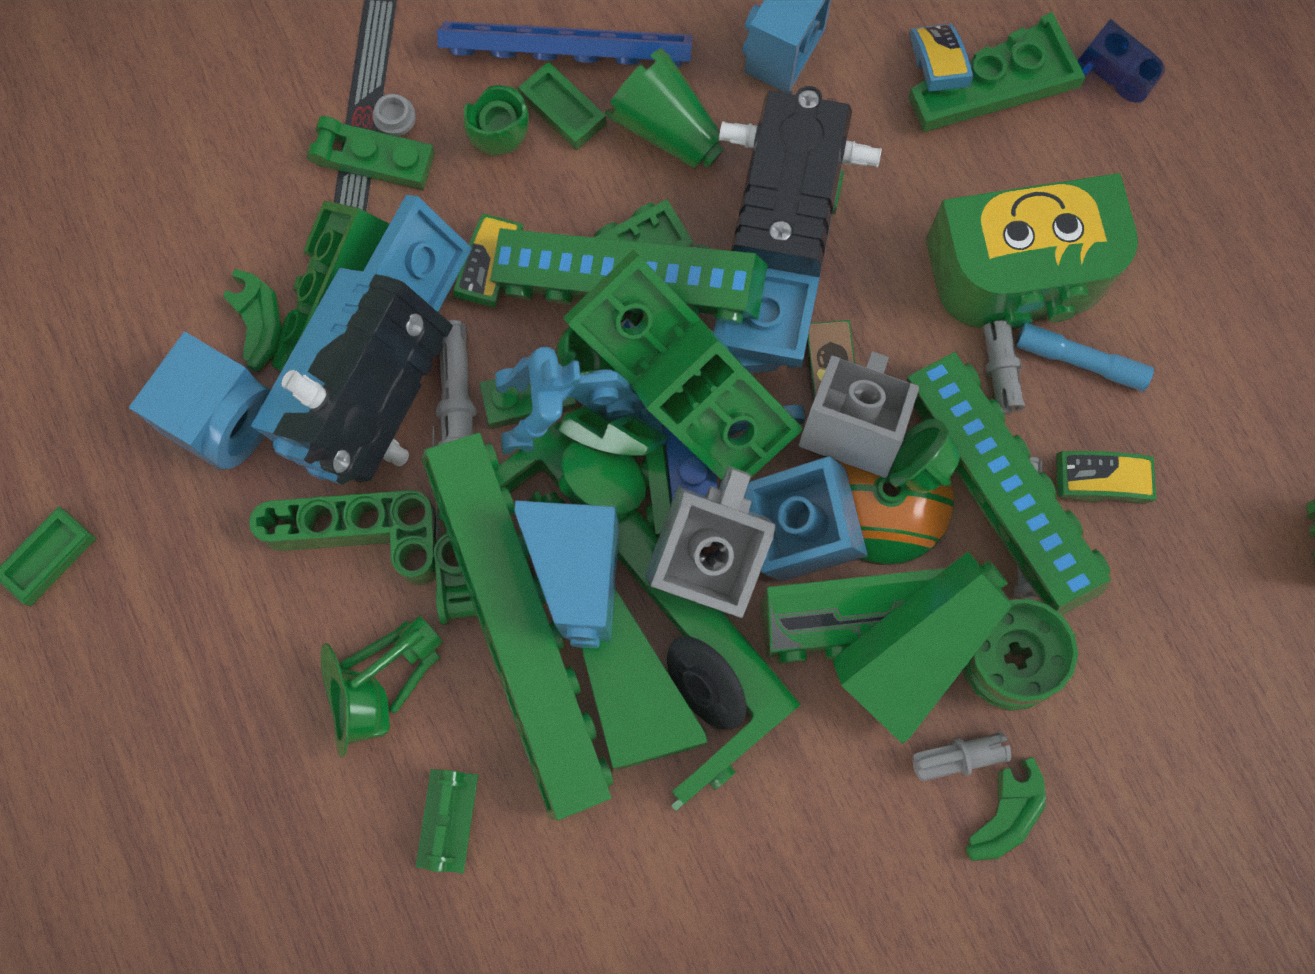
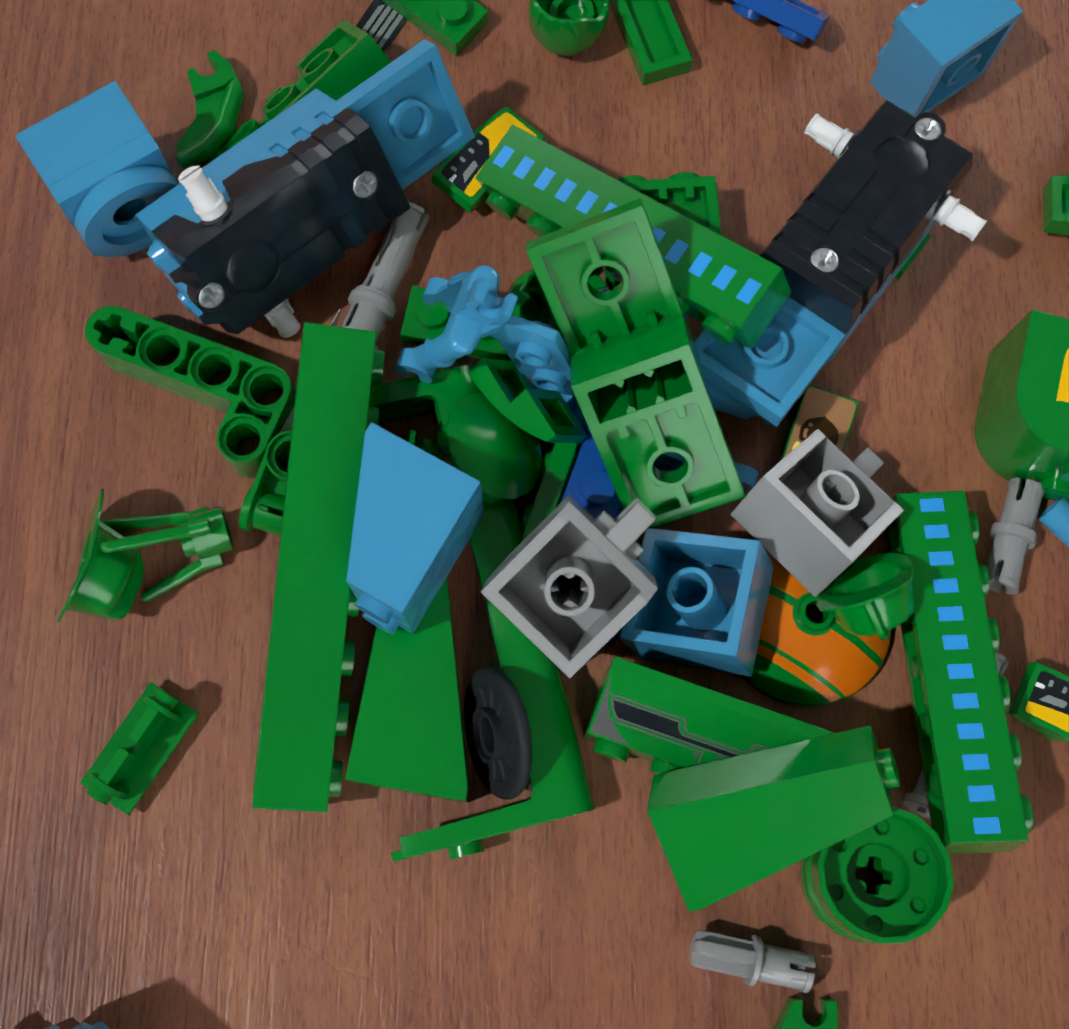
camera: 20 degrees right, 0 degrees up
(667, 113) = (760, 81): green cone -> none

